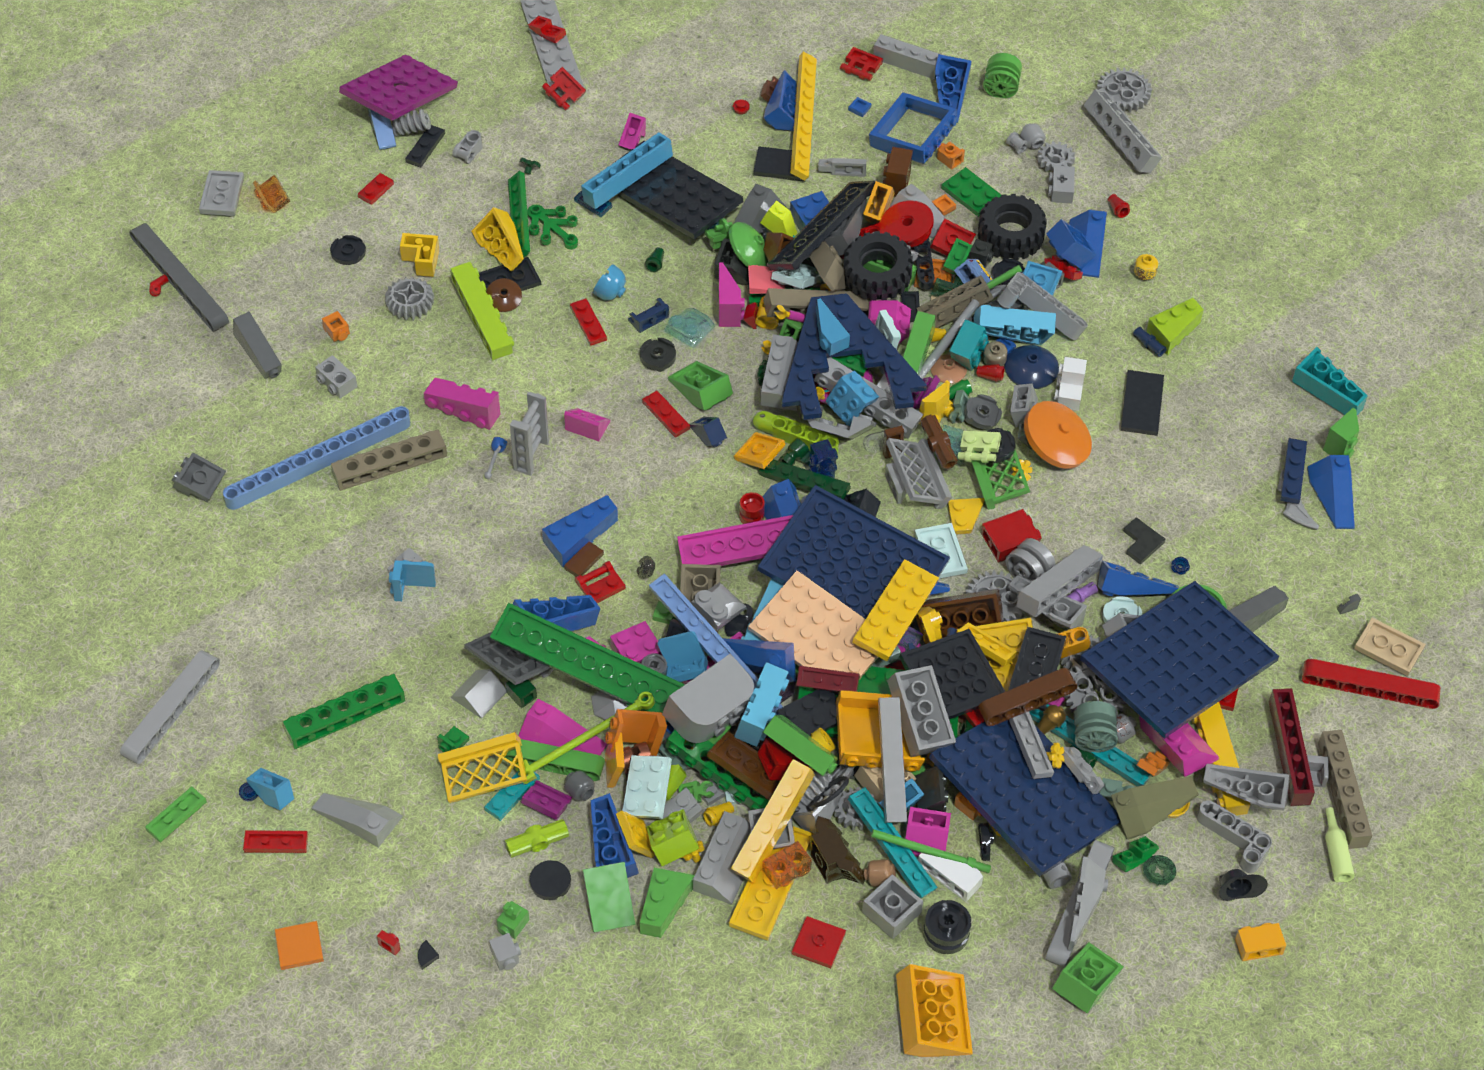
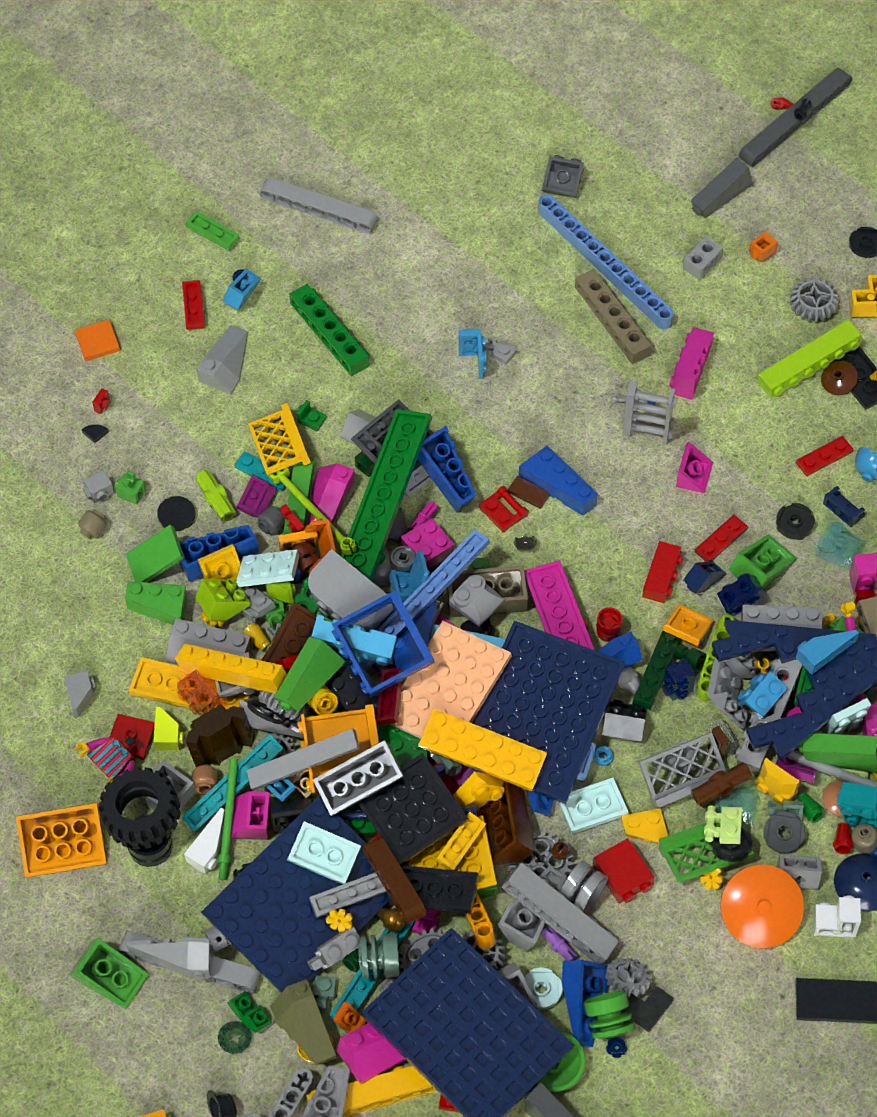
camera: 85 degrees right, 5 degrees up
(183, 264) = (801, 112): none -> black pin
(551, 961) = (92, 523): none -> dark tan head
(595, 757) = (294, 523): none -> red plate
(698, 462) = (662, 572): none -> red brick
(739, 400) = (741, 592): none -> clear blue brick
(763, 986) = (79, 690): none -> light grey slope
(776, 635) = (392, 597): none -> blue window
(819, 904) = (166, 732): none -> neon yellow slope
(852, 953) = (109, 755): none -> torso
(934, 890) = (131, 786): none -> black tyre
(991, 576) = (564, 850): none -> reddish brown hinge
(992, 755) = (324, 853): none -> light aqua plate
(1117, 544) = (628, 976): none -> light grey gear
(1158, 558) = (609, 1015): none -> bright green wheel

